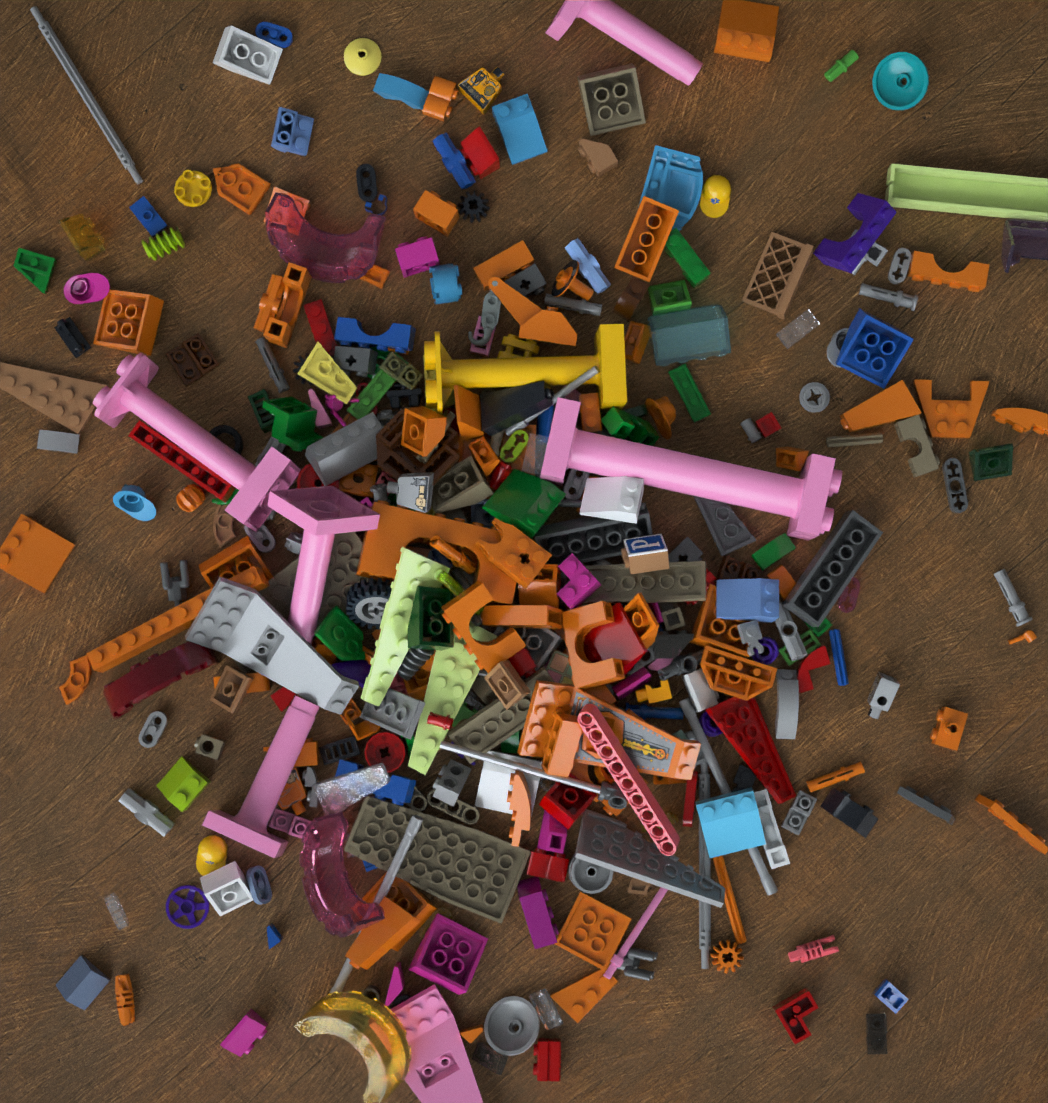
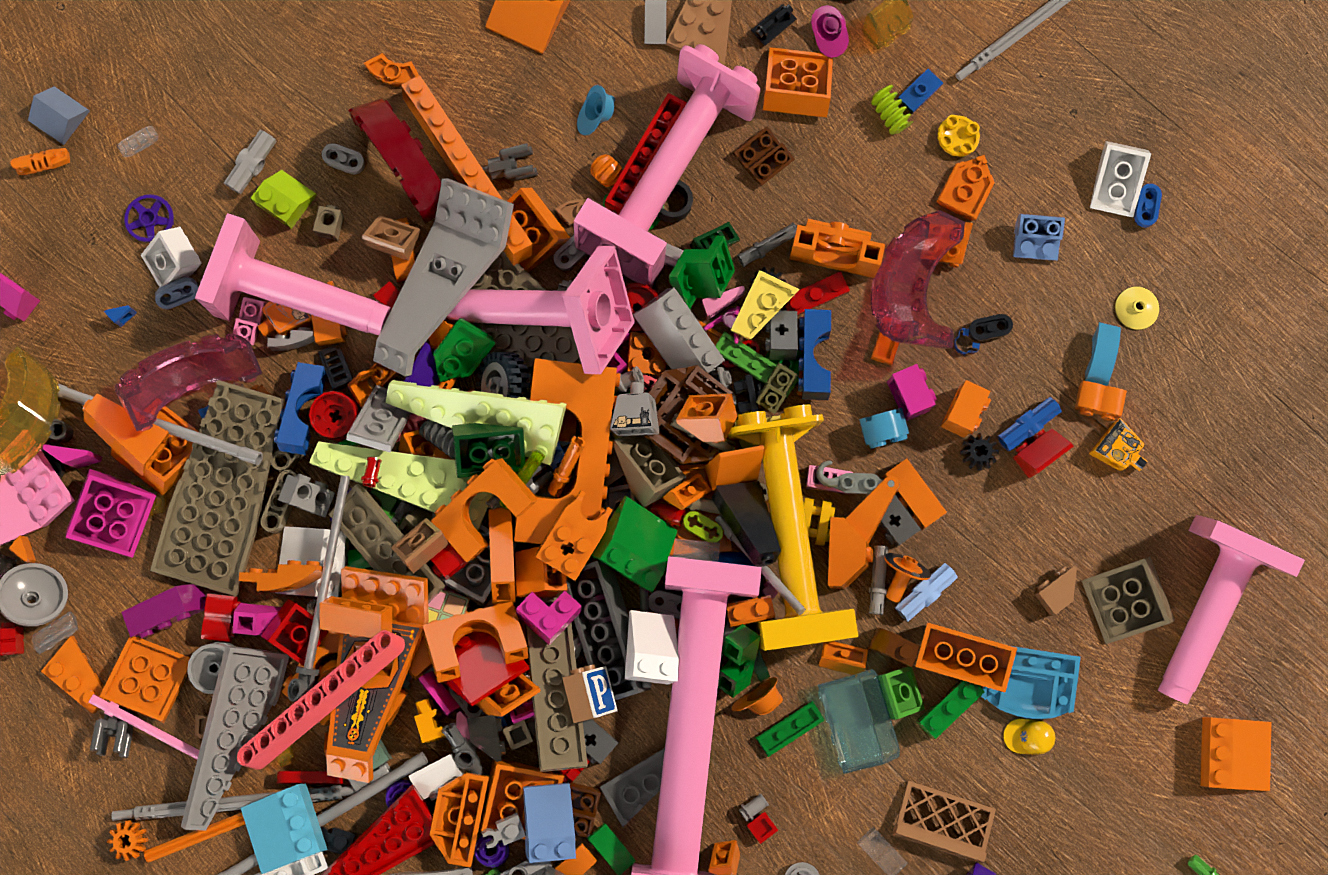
camera: 80 degrees right, 5 degrees down
(211, 854) = (203, 236): yellow cap -> none
(343, 790) = (286, 372): clear wing -> none
(519, 129) = (1077, 495): dark azure slope -> none
(645, 711) = (407, 713): blue pin -> none

